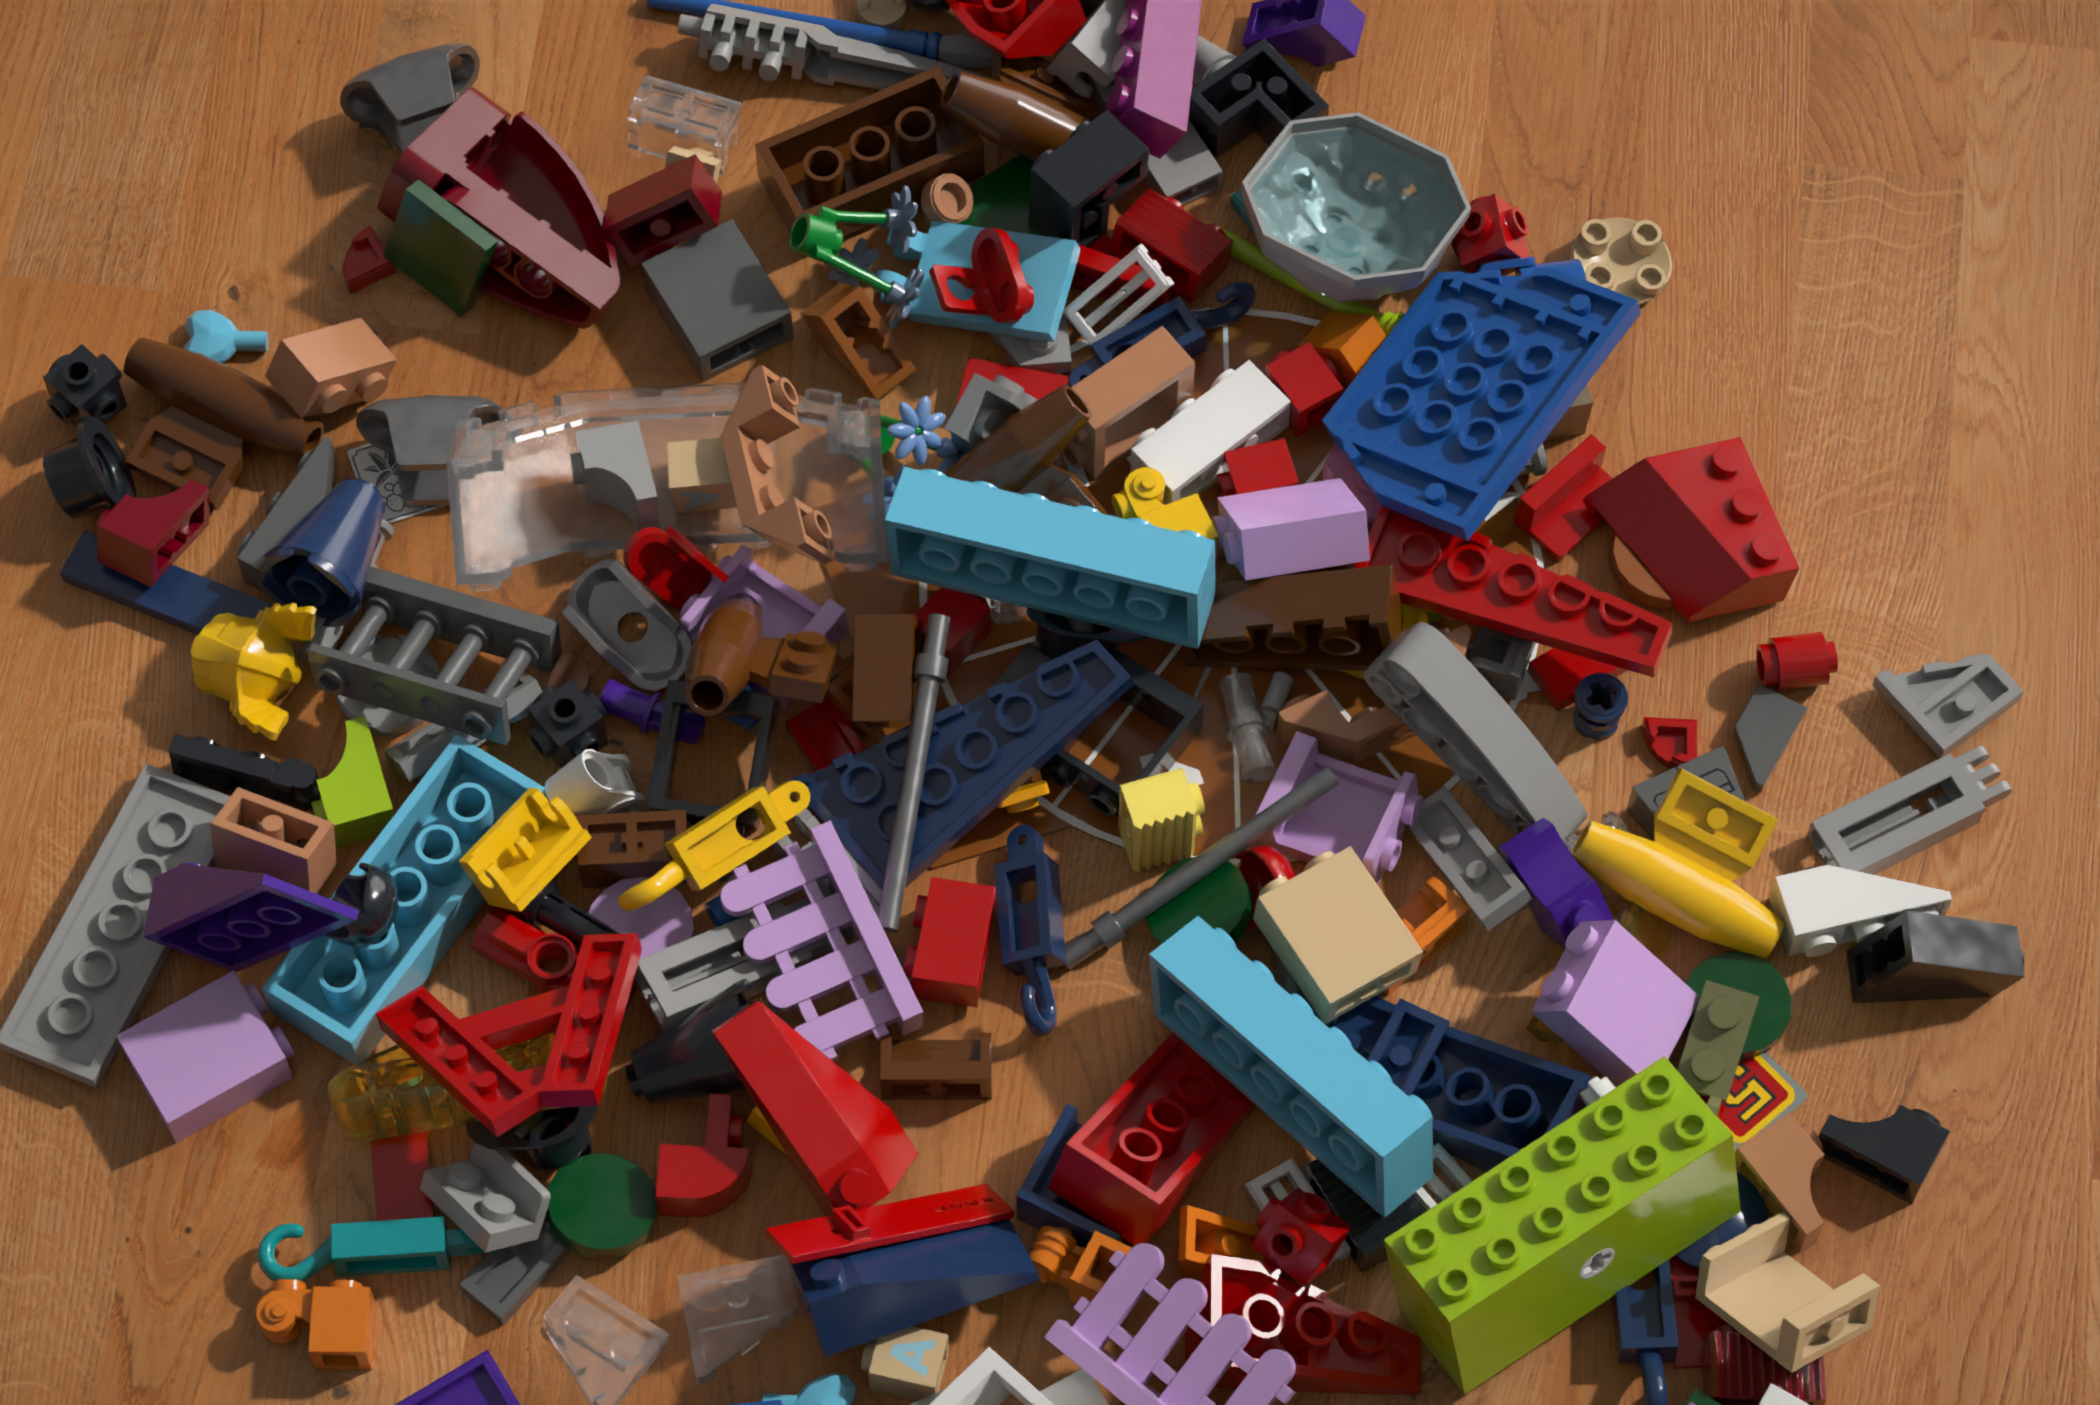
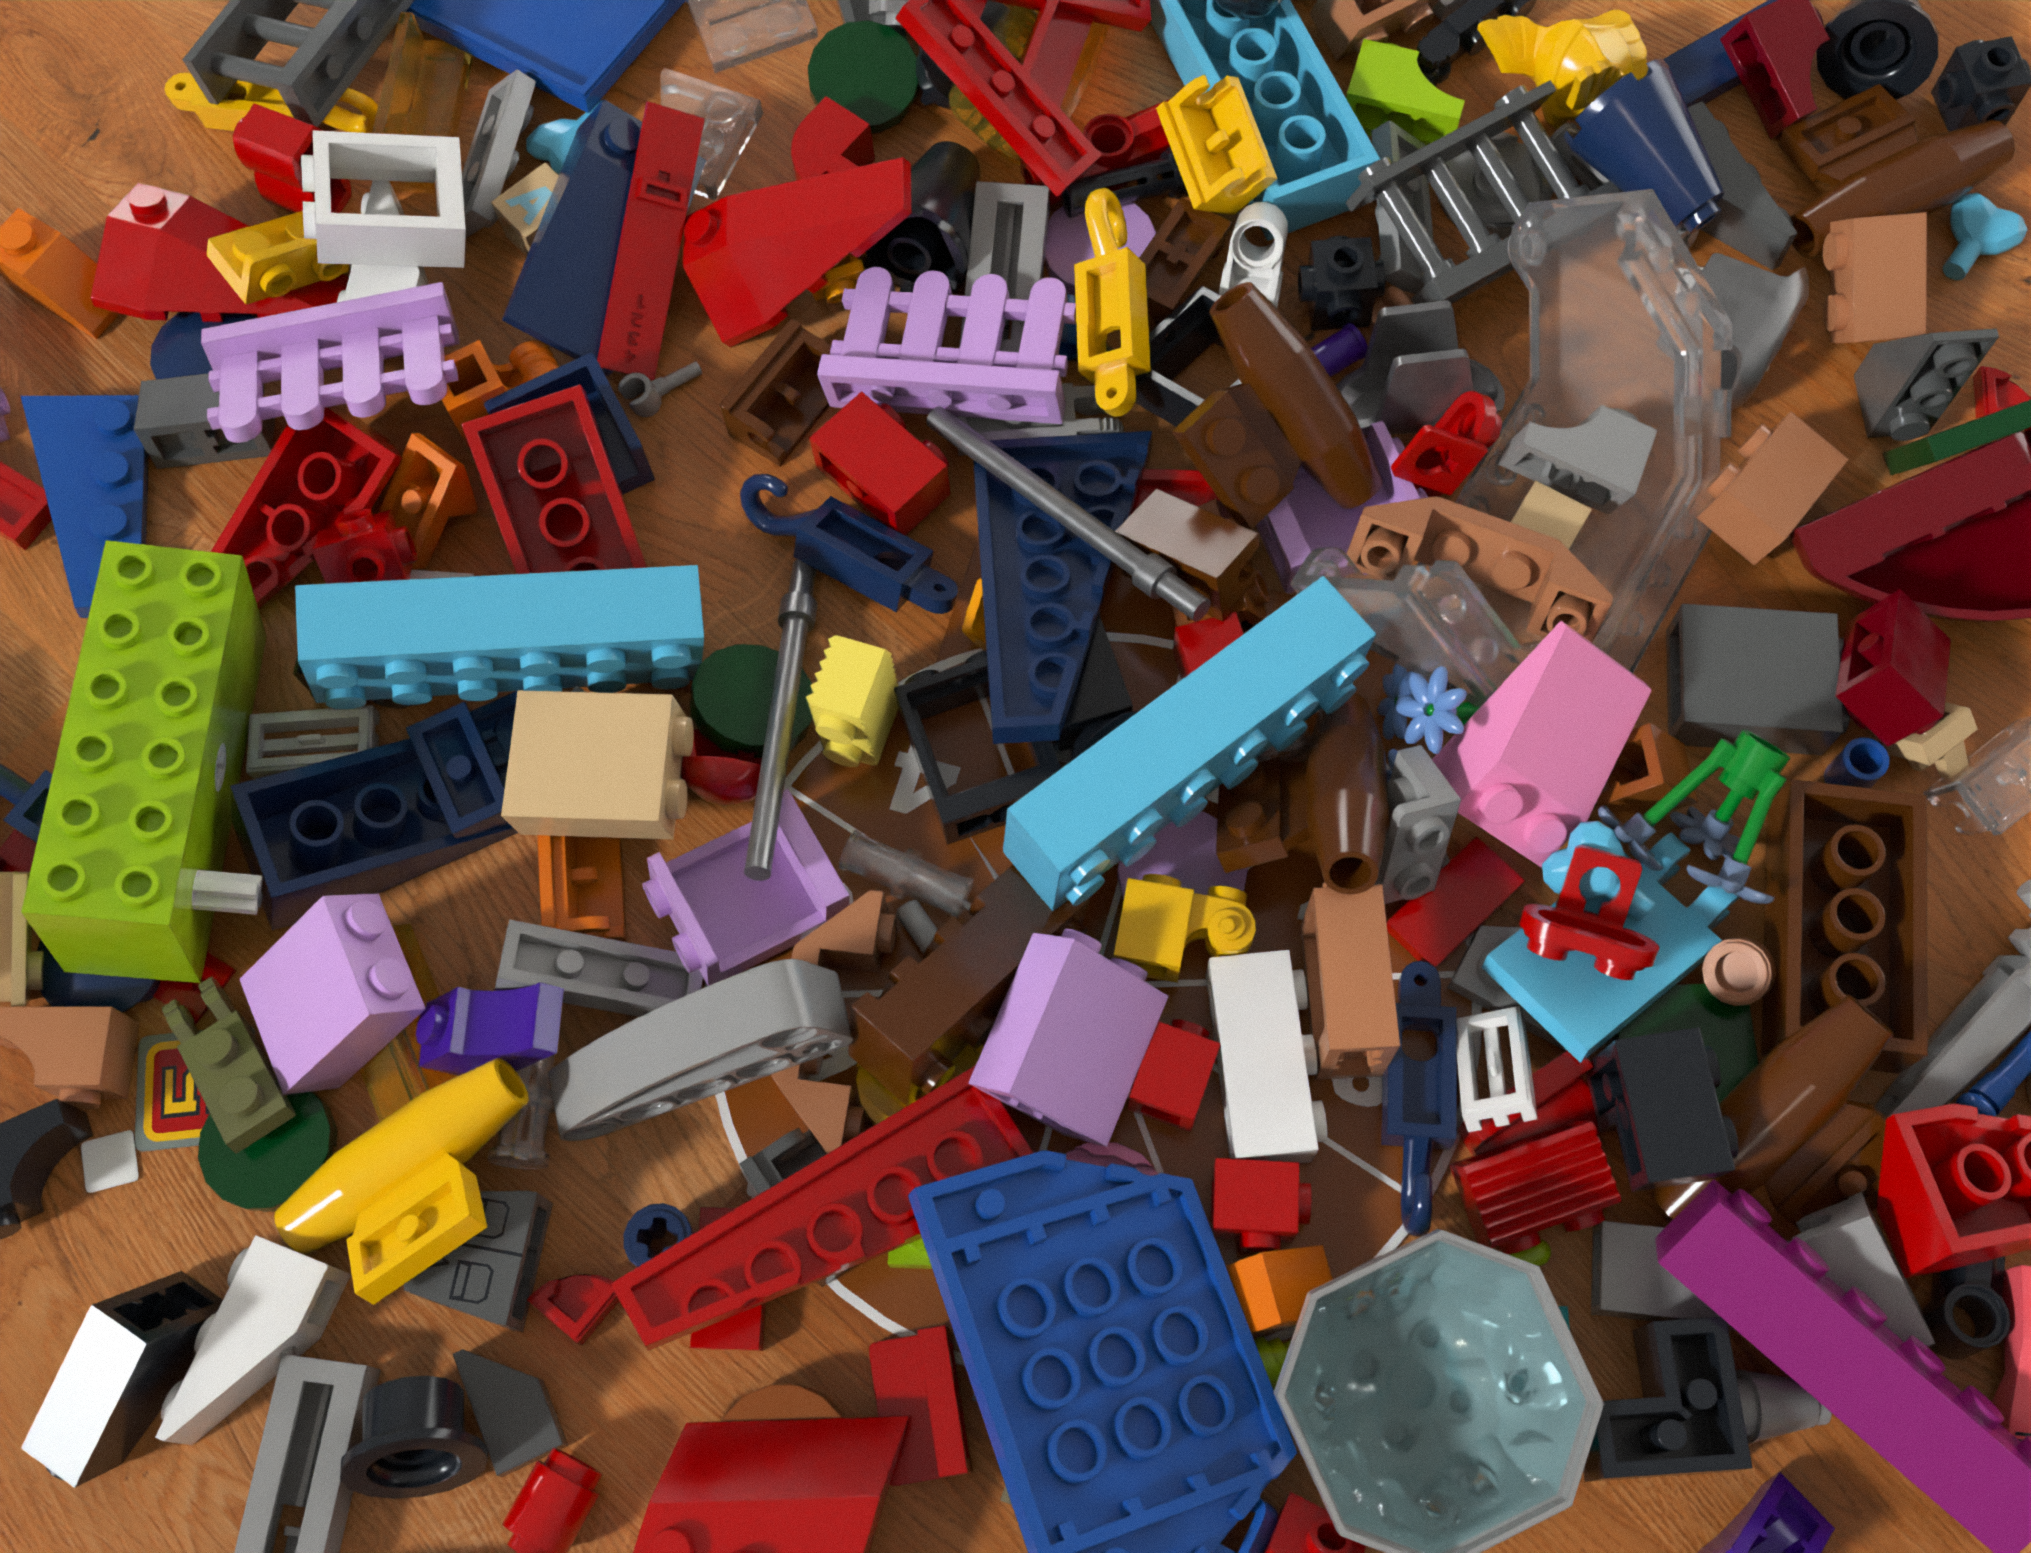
camera: 130 degrees right, 5 degrees up
(407, 297) = (1915, 378): none -> dark grey slope
(558, 353) = (1771, 488): none -> nougat brick
(742, 206) = (1863, 754): none -> blue hinge
(888, 364) = (1544, 744): none -> bright pink slope
(952, 324) = (1599, 881): none -> medium azure rock
(993, 1171) = (650, 401): none -> light grey hand
(1826, 755) = (413, 1441): none -> black piece
(1827, 1100) = (109, 1161): none -> white sticker

